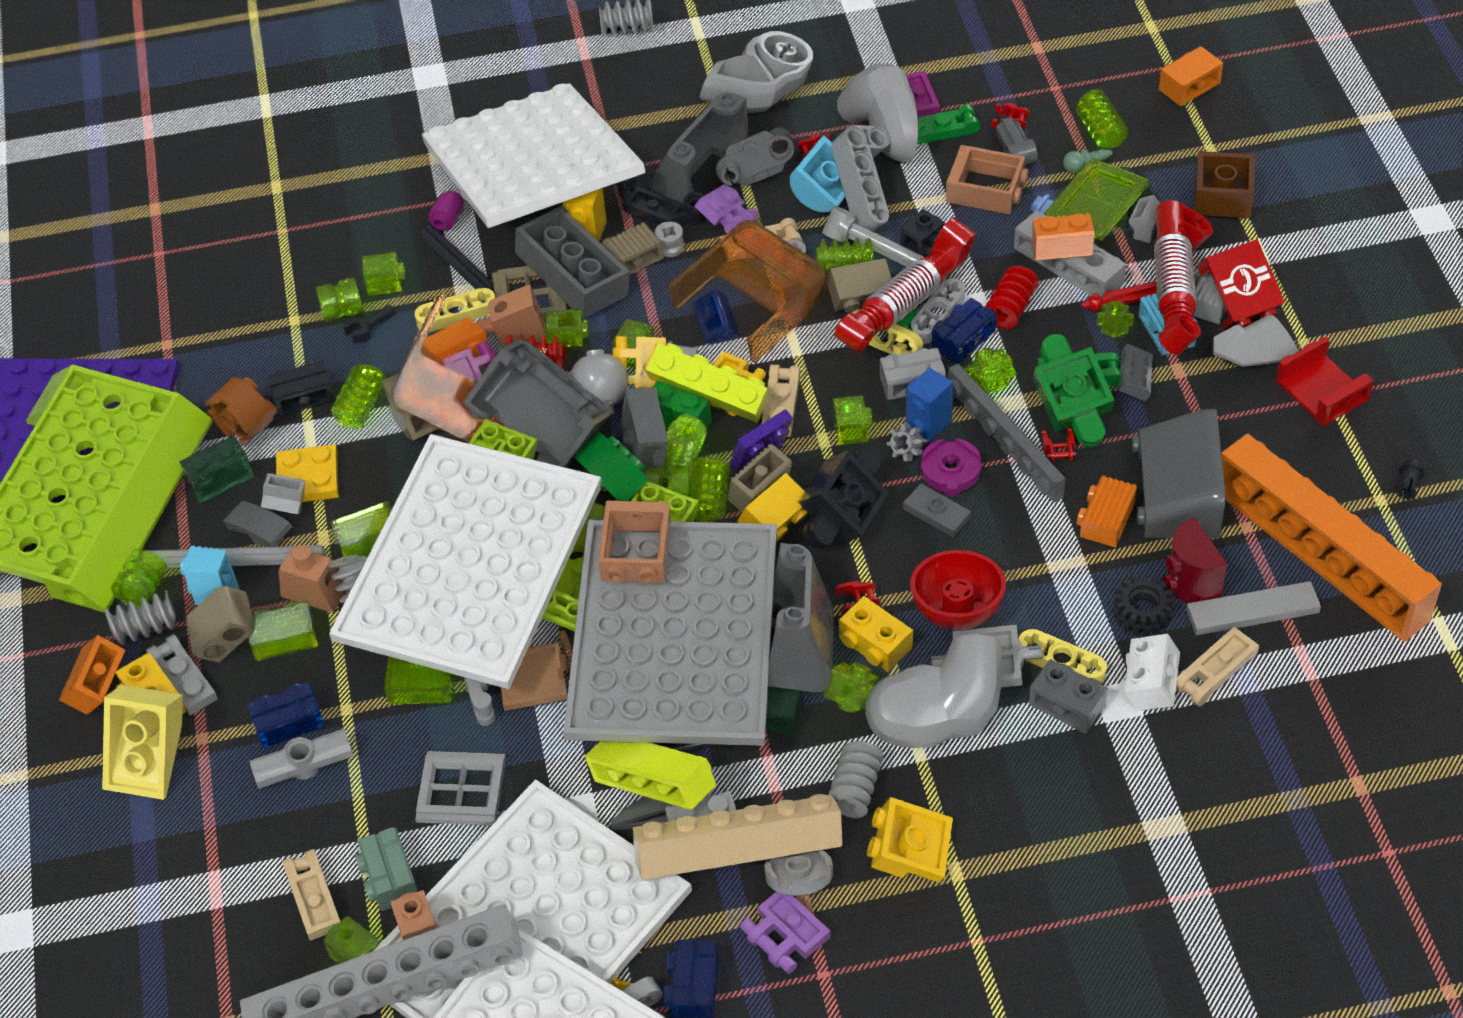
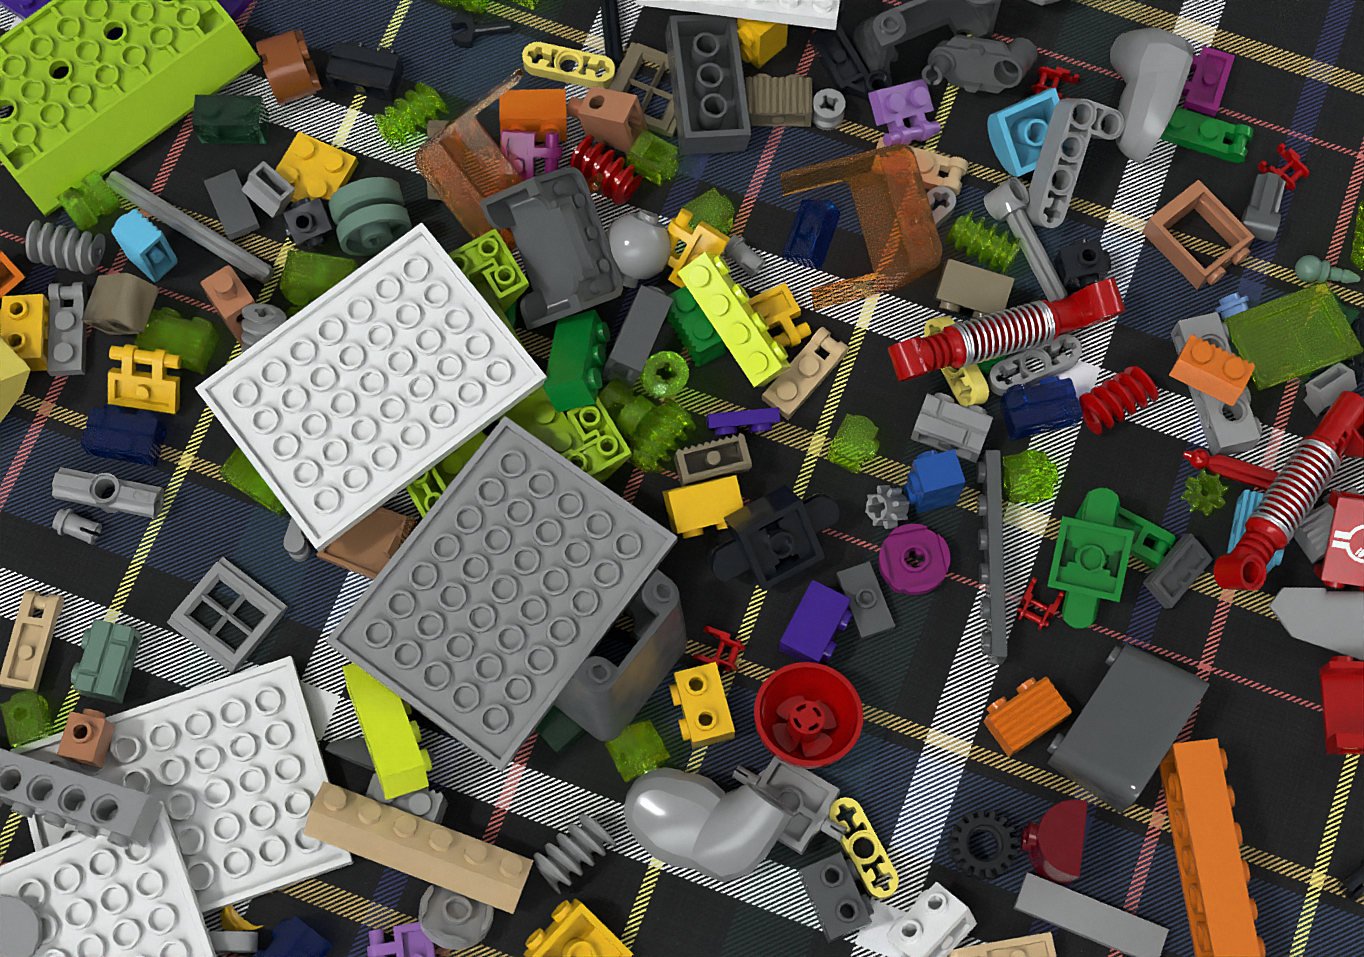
camera: 30 degrees right, 20 degrees up
(279, 674) = (143, 389): none -> yellow plate
(291, 796) = (75, 525): none -> light grey pin
(333, 497) = (309, 222): none -> black brick
(378, 465) = (369, 215): none -> sand green wheel
(622, 517) = (543, 447): nougat window -> none
(914, 535) = (815, 624): none -> dark purple brick

